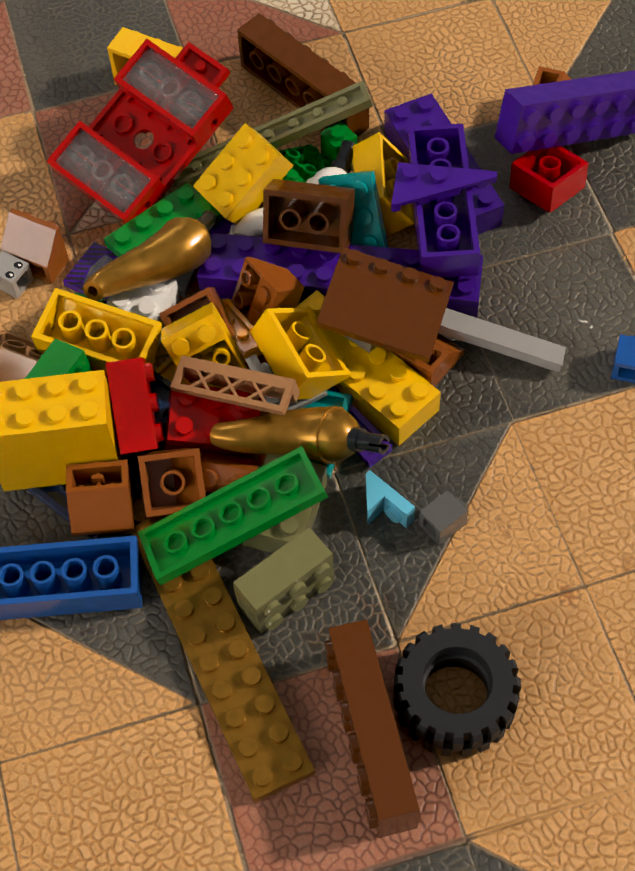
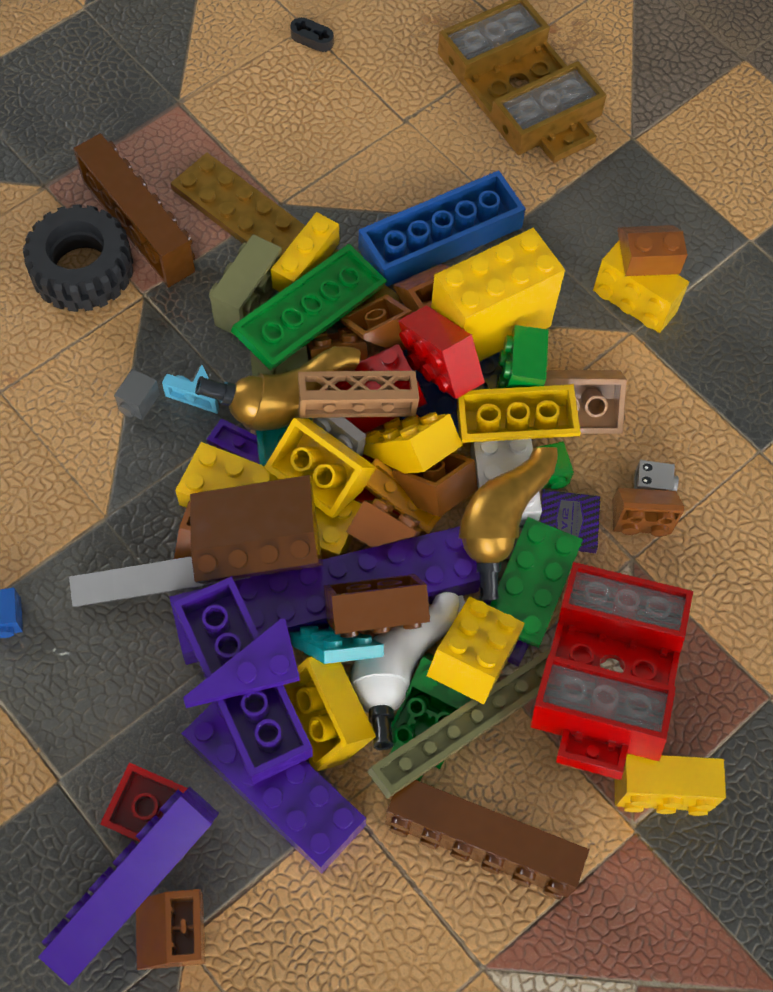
camera: 150 degrees right, 5 degrees up
(204, 588) = (306, 252): none -> yellow brick

